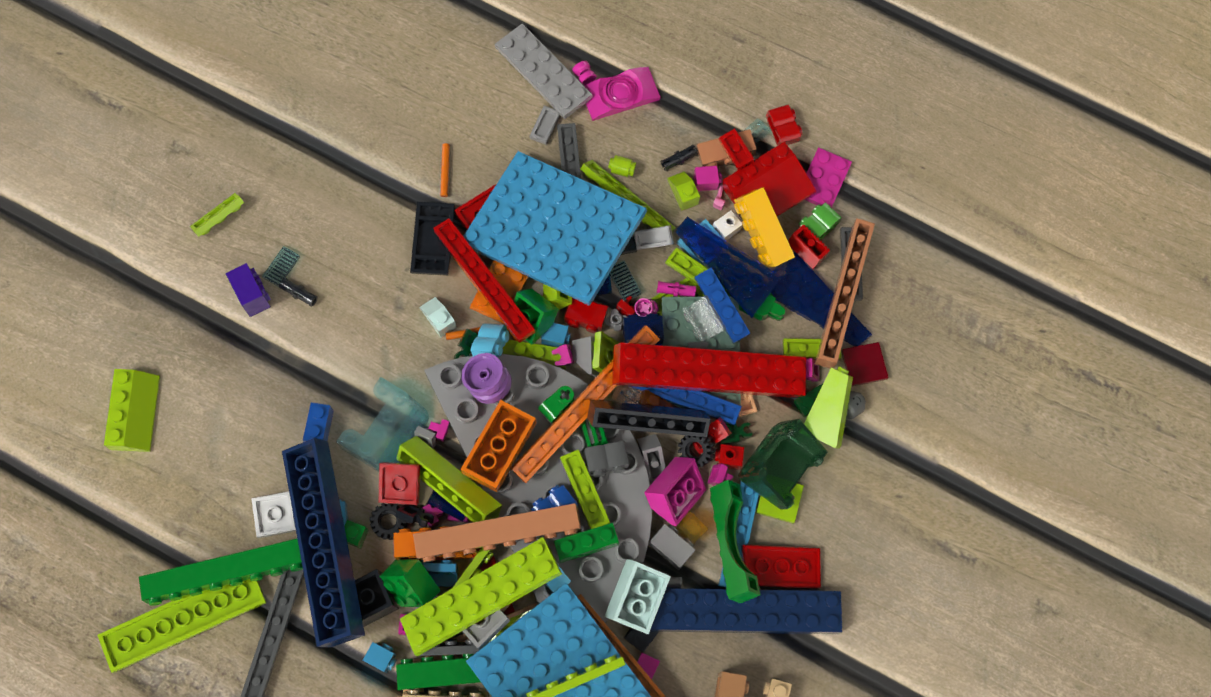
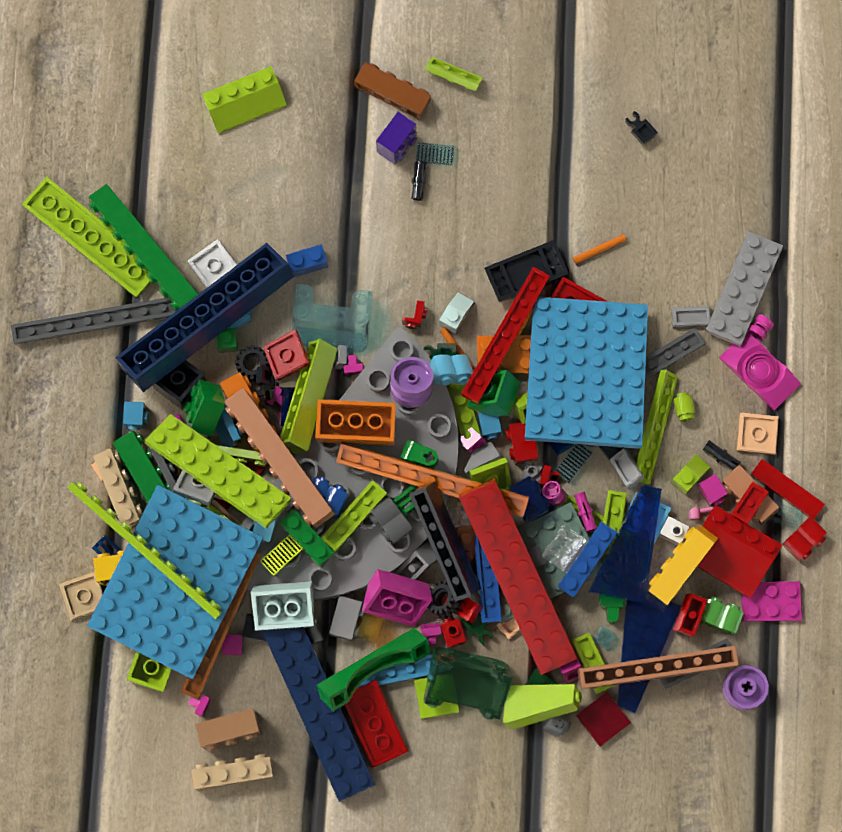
camera: 70 degrees right, 5 degrees up
(201, 274) = (392, 90): none -> dark orange brick
(359, 84) = (643, 130): none -> black plate
(423, 349) = (420, 312): none -> red bracket
(589, 575) = (281, 555): none -> tile
(674, 121) = (757, 433): none -> light nougat tile
(734, 119) = (787, 489): none -> red tile
(793, 323) = (599, 637): none -> clear light blue plate
(892, 232) = (756, 684): none -> medium lavender wheel

